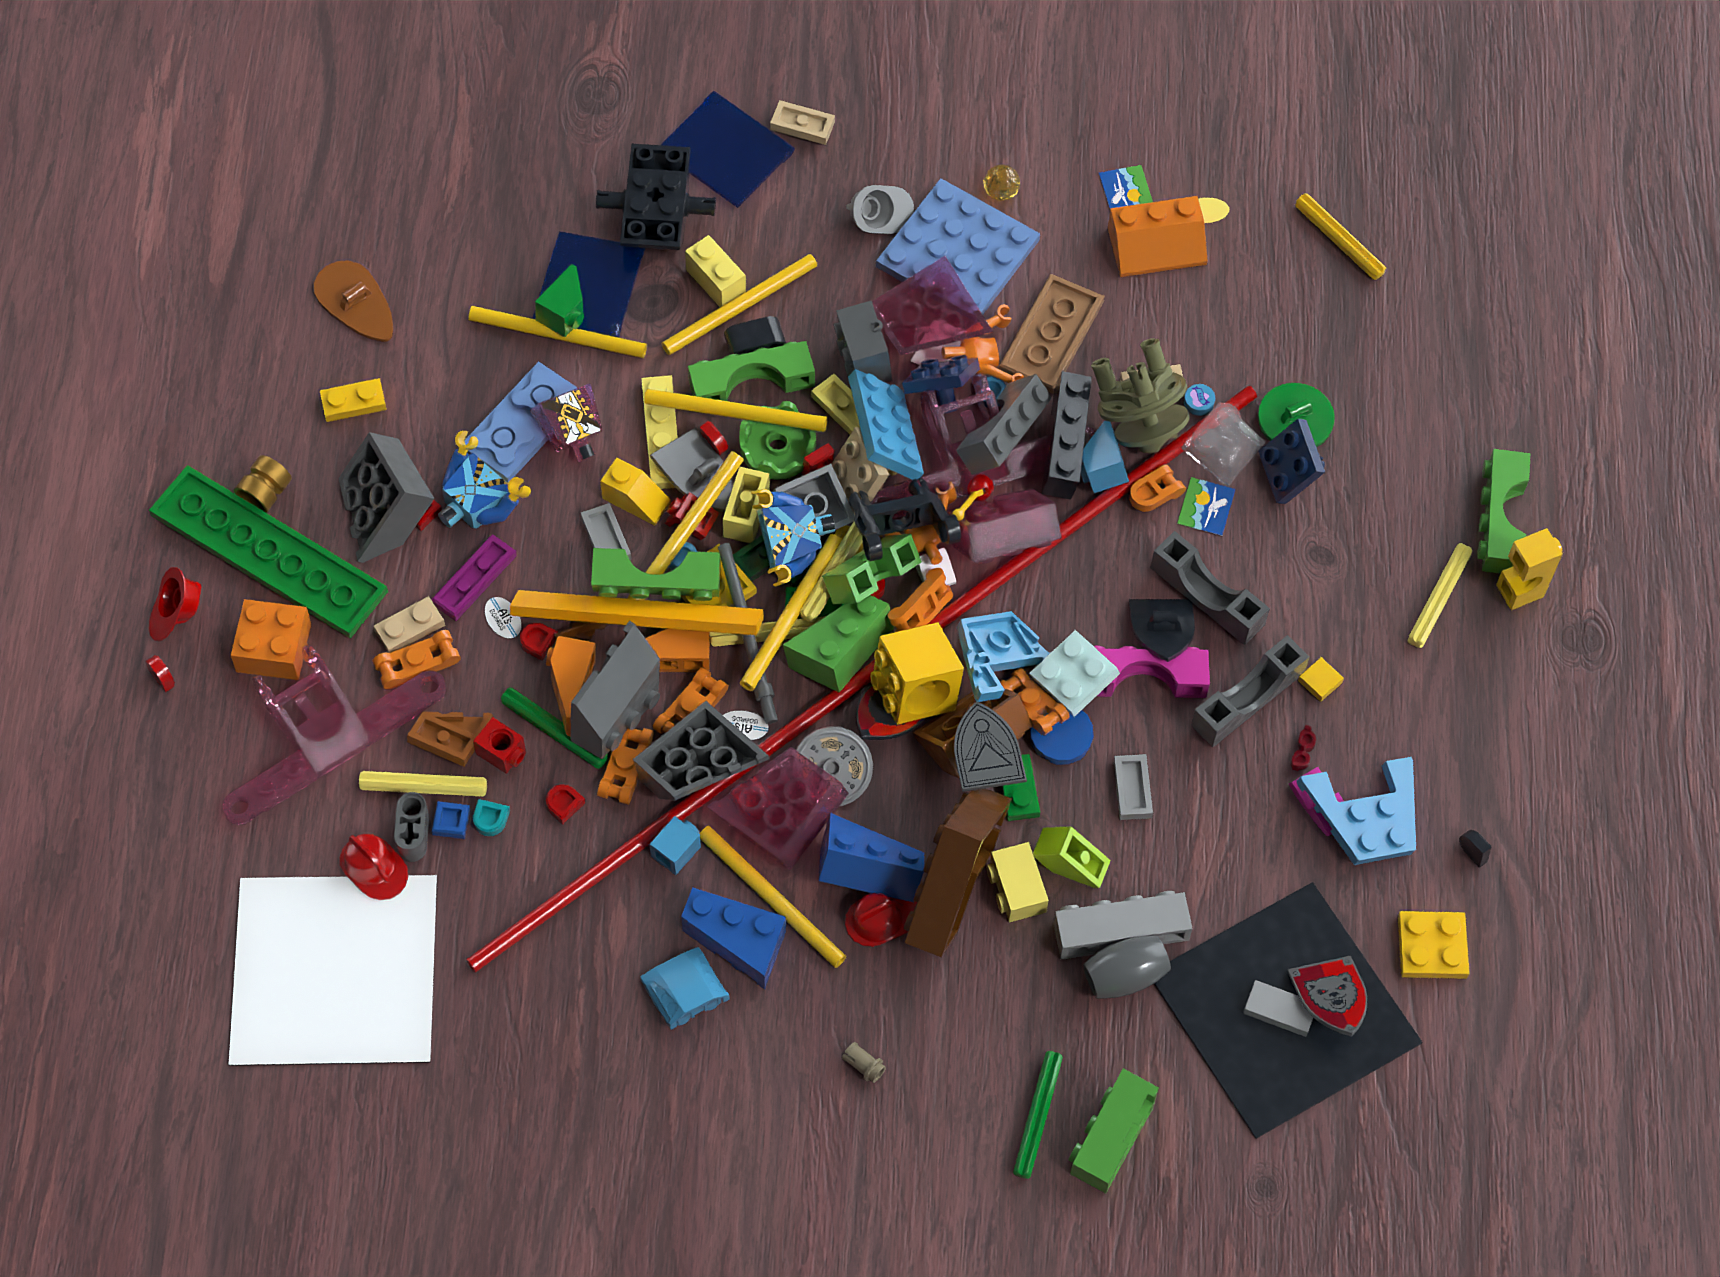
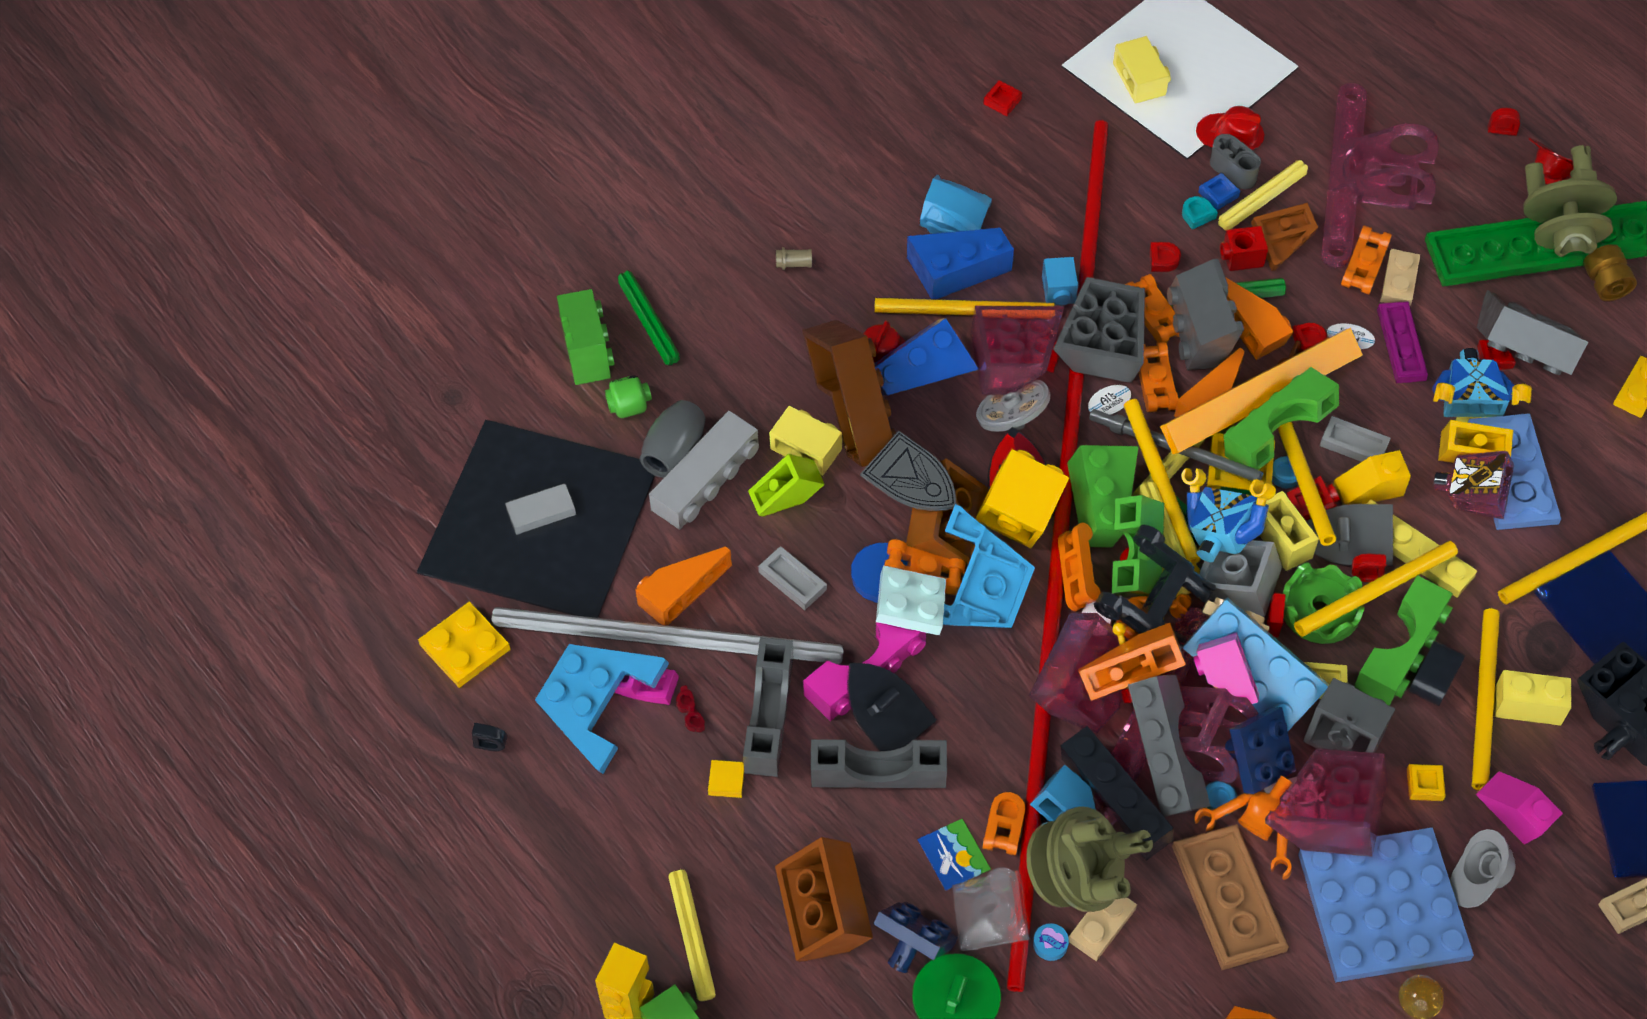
camera: 140 degrees right, 5 degrees down
(247, 525) = (1569, 207): none -> olive piece
(271, 639) = (1469, 189): orange brick -> none
(380, 980) = (1141, 69): none -> light yellow brick
(519, 1070) = (1002, 98): none -> red tile
(538, 447) = (1472, 438): none -> yellow slope
(561, 303) = (1600, 565): green slope -> none
(810, 220) = (1519, 806): none -> dark pink slope
(843, 291) = (1426, 782): none -> yellow tile
(916, 426) = (1227, 666): none -> slope
(966, 480) = (1133, 661): none -> orange slope
(1023, 796) = (874, 510): green plate -> none
(1124, 1046) = (627, 396): none -> bright green head
(1232, 846) = (678, 585): none -> orange slope
(1273, 823) = (656, 634): none -> light grey axle
(1331, 538) = (823, 900): none -> dark orange slope
(1332, 993) = (508, 538): shield -> none

